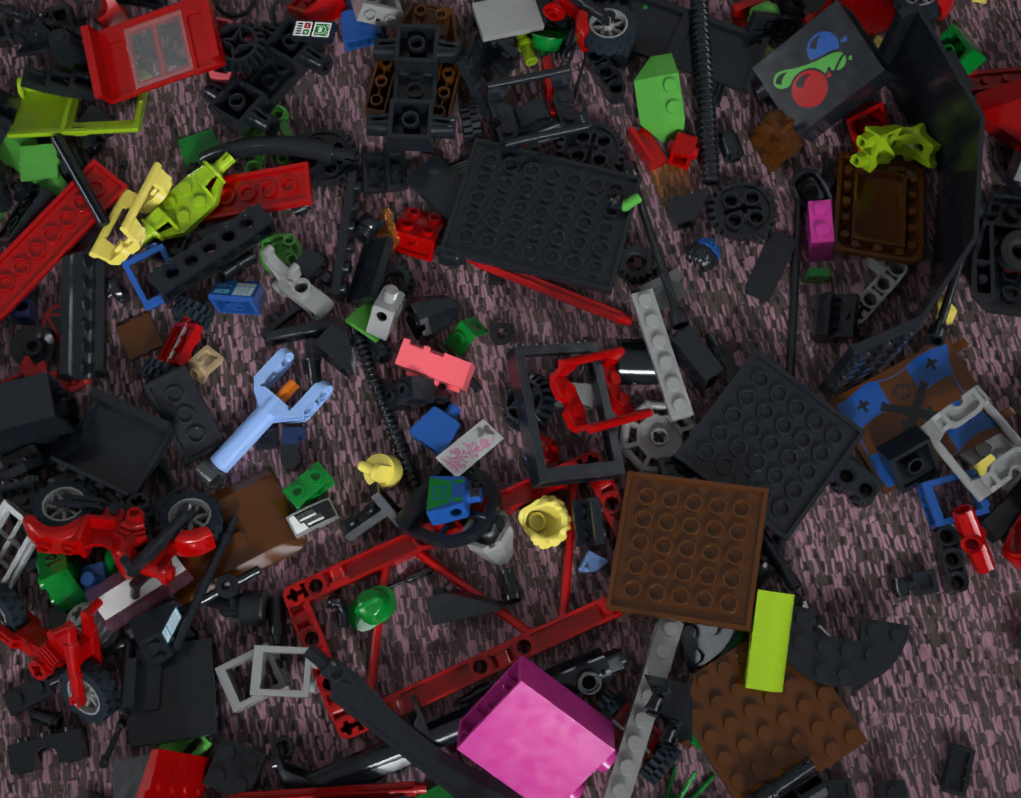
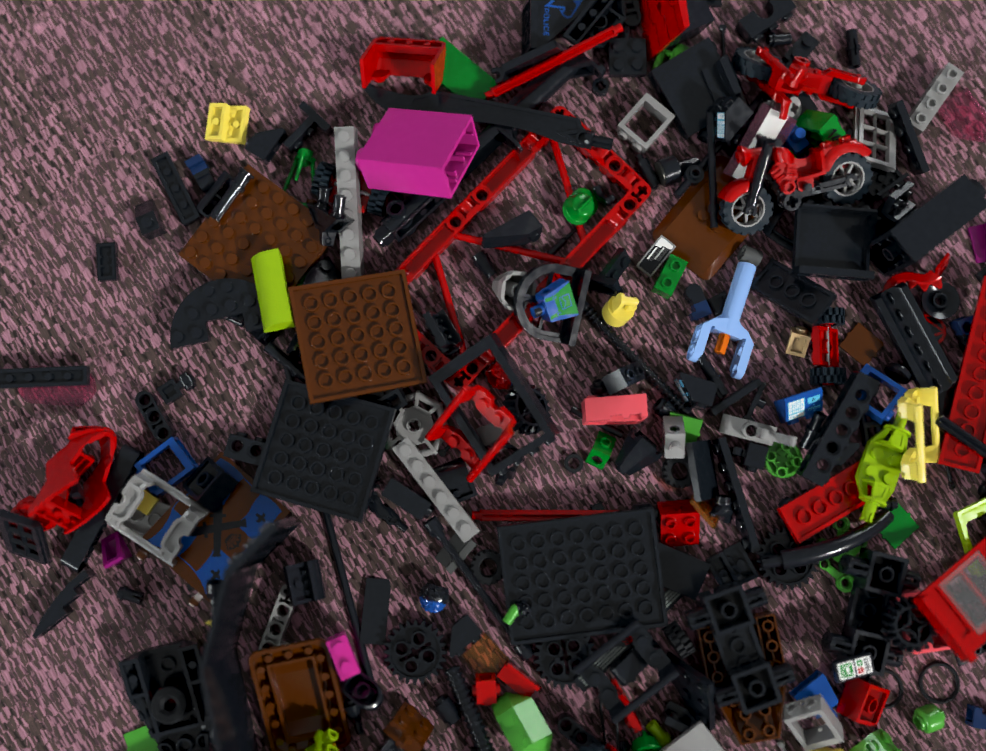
camera: 155 degrees right, 10 degrees up
(259, 670) = (640, 120): light grey window -> none
(437, 428) = (589, 361): blue torso -> none
(469, 448) = (558, 355): white sticker -> none
(476, 693) = (475, 180): black piece -> none
(545, 521) = (475, 319): light yellow hair -> none
(592, 562) = (429, 305): medium blue tile -> none
(817, 275) = (332, 617): green tile -> none
(970, 529) = (141, 437): red piece -> none

